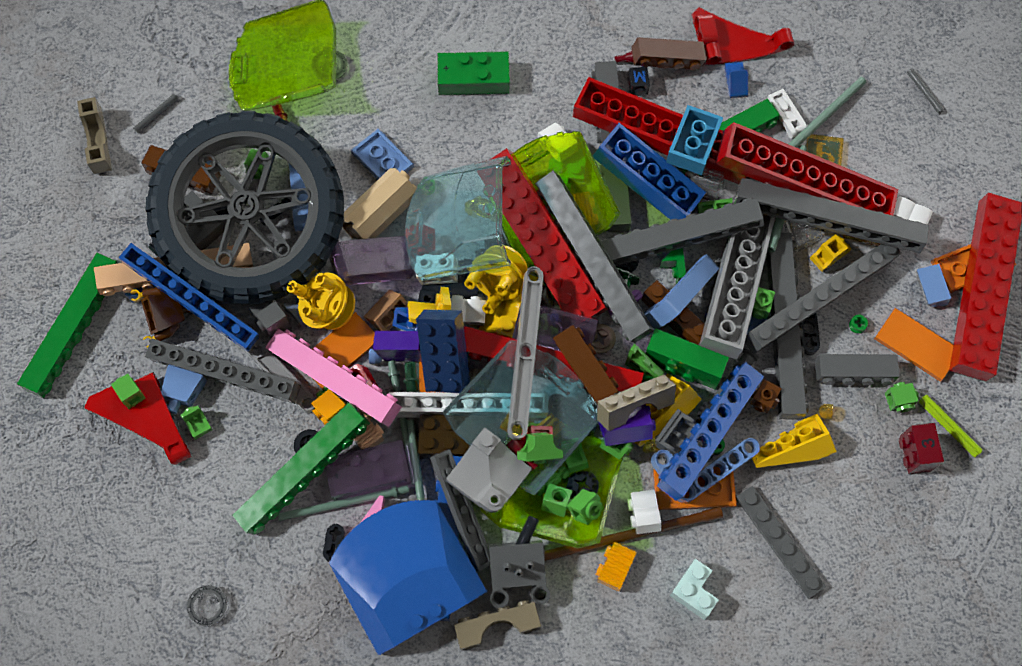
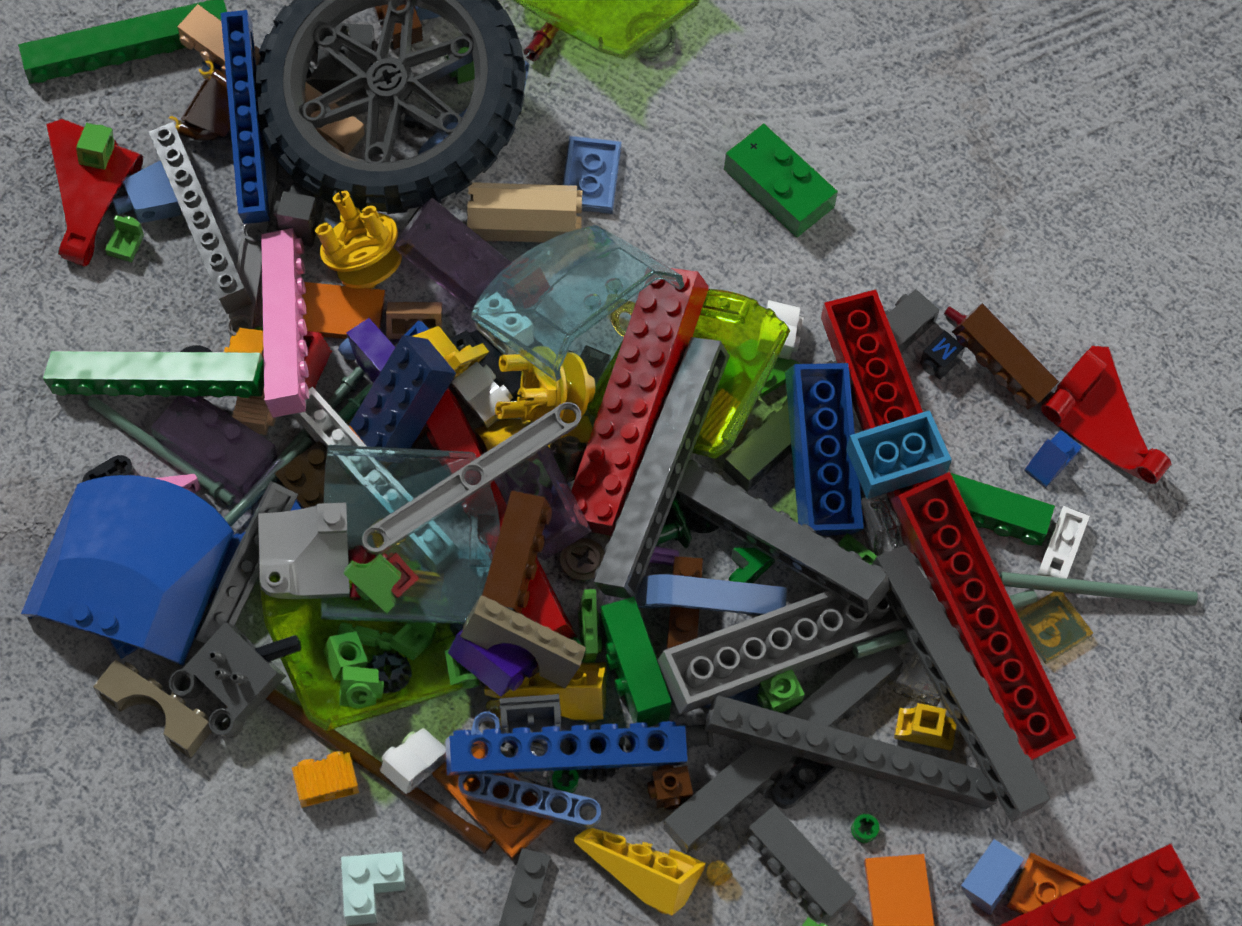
camera: 45 degrees right, 5 degrees down
(909, 210) = (1063, 780): white brick -> none

